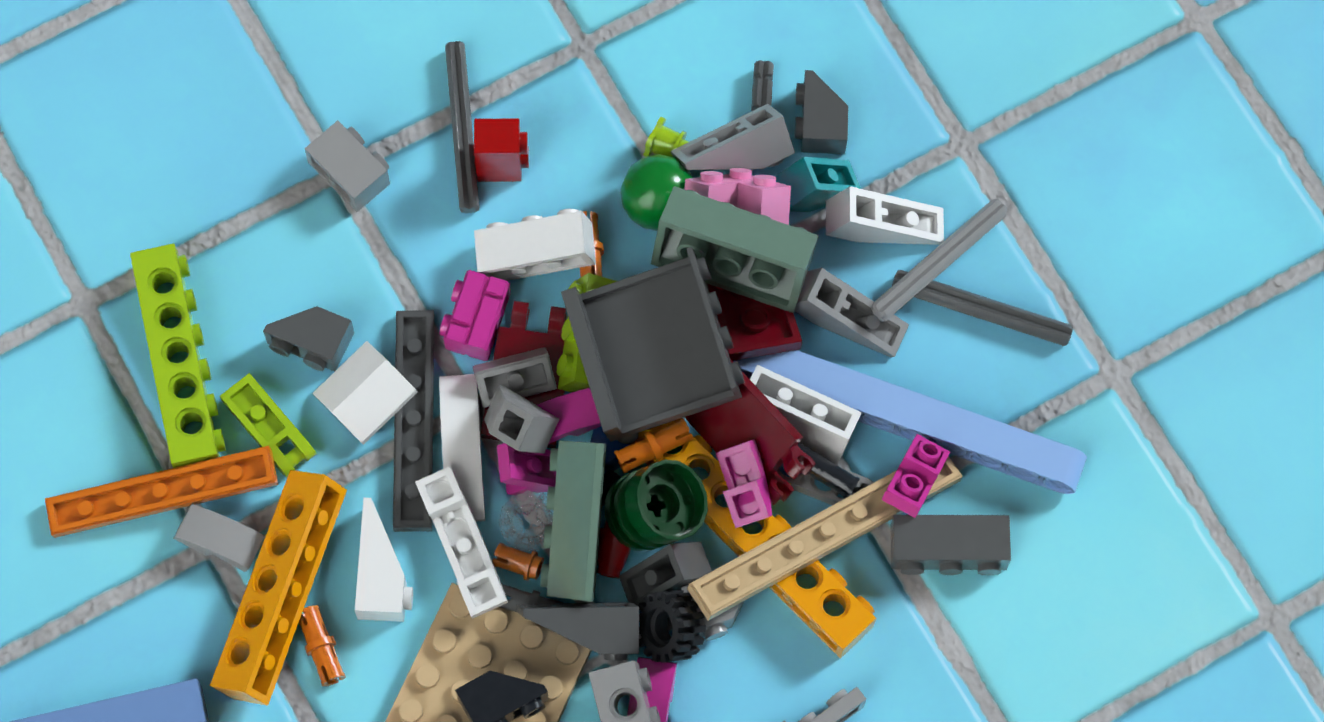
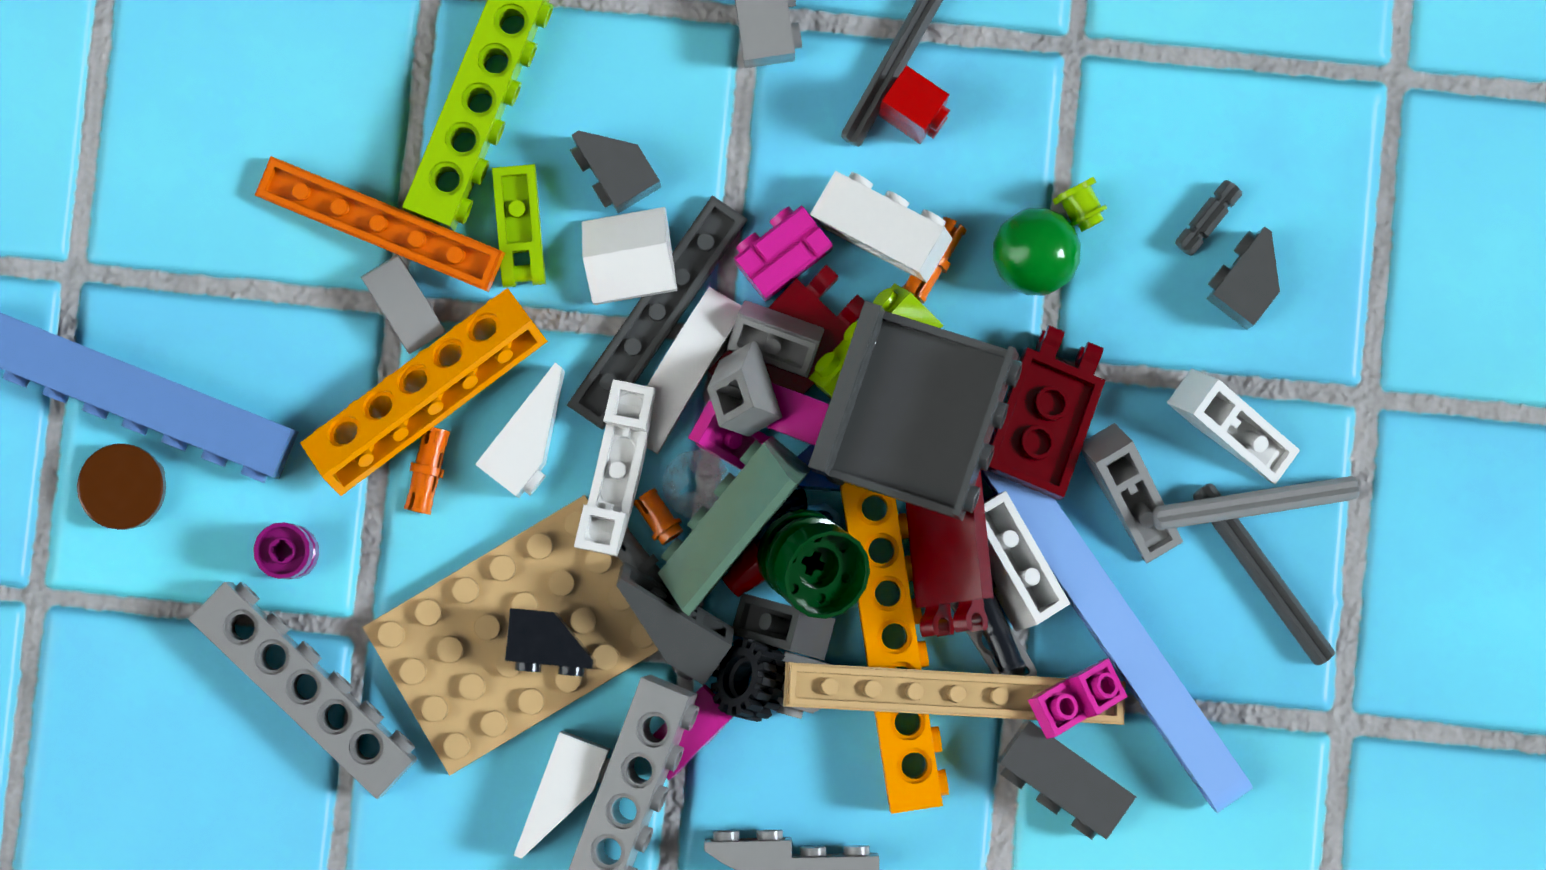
camera: 35 degrees right, 15 degrees up
(653, 445) = (851, 503): orange pin -> none
(741, 248) = (1063, 368): sand green slope -> none
(743, 190) = (1103, 315): bright pink brick -> none
(746, 483) = (910, 605): dark pink slope -> none
(747, 142) = (1150, 258): light grey slope -> none
(816, 181) = (1194, 345): teal slope -> none

